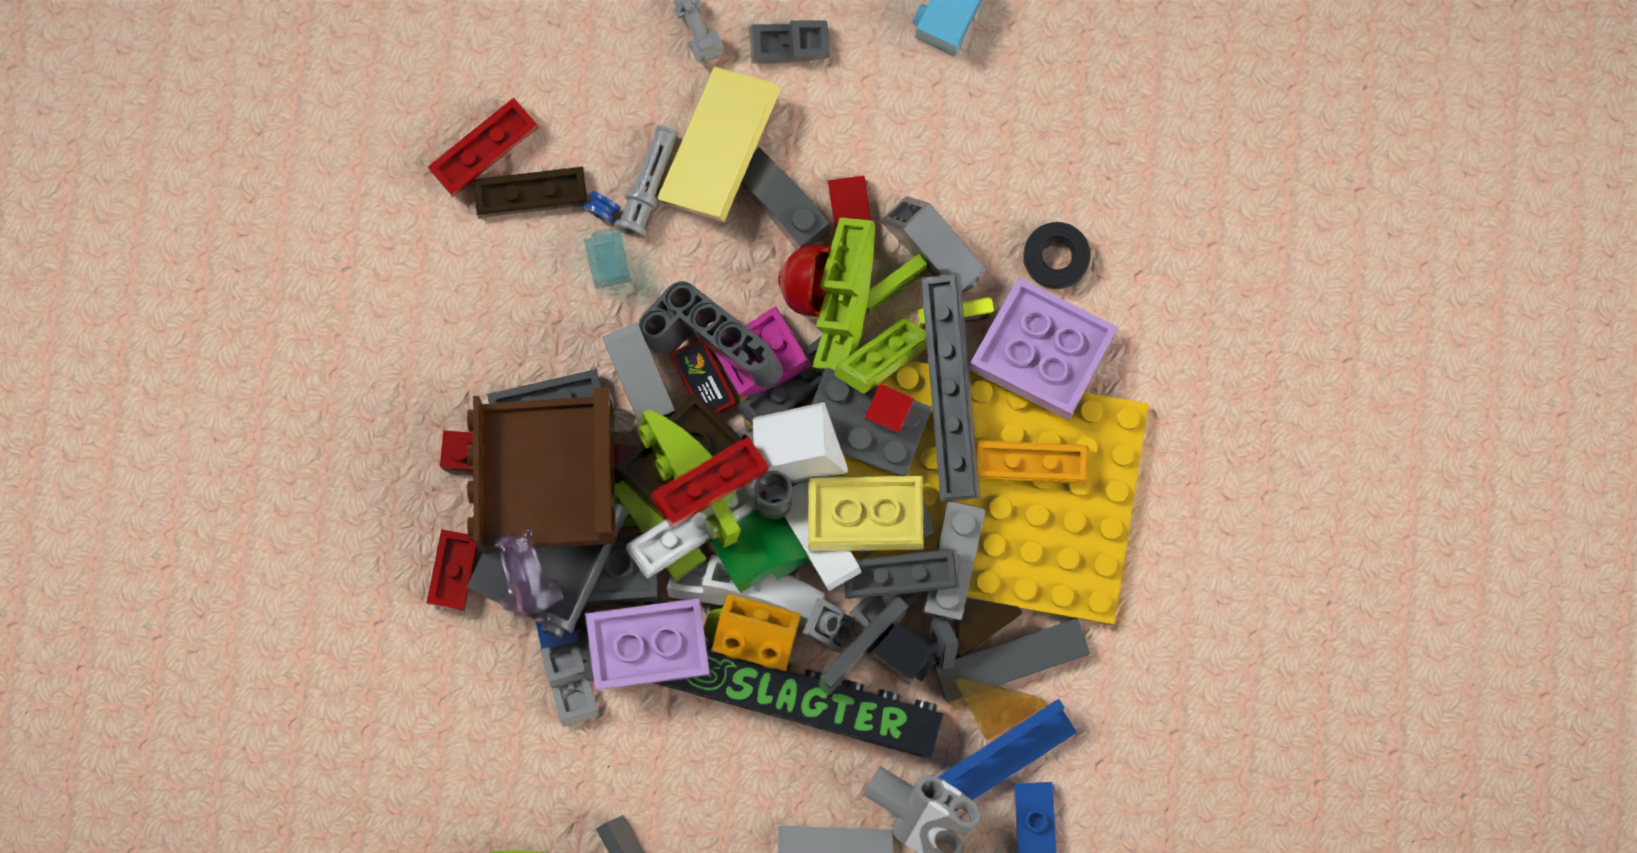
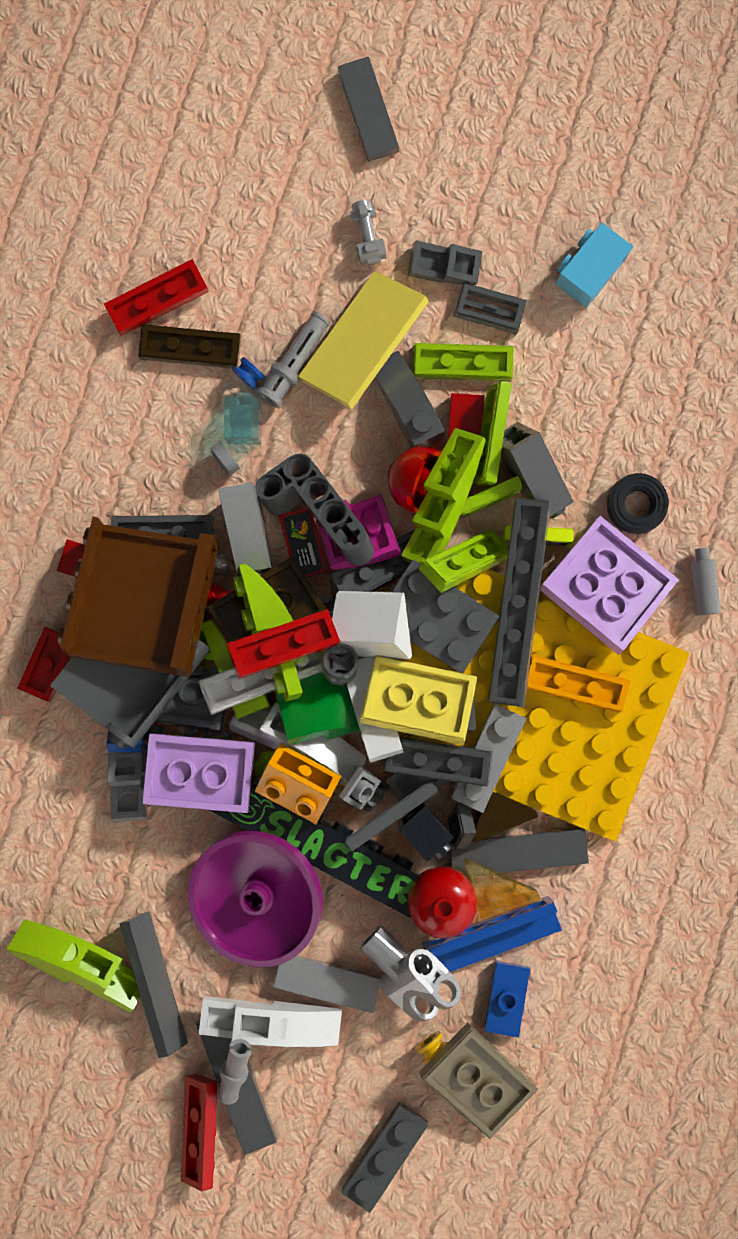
camera: 15 degrees right, 5 degrees up
(525, 577) = (101, 700): clear purple piece -> none
(597, 305) = (224, 458): none -> light grey tile
(737, 769) = (255, 899): none -> magenta dish
(833, 144) = (463, 362): none -> lime tile
(849, 93) = (491, 309): none -> dark grey tile
(882, 214) = (493, 431): none -> lime tile
(889, 409) = (461, 610): red tile -> none
(939, 724) = (442, 902): none -> red cylinder
(1148, 326) = (705, 583): none -> light grey cylinder

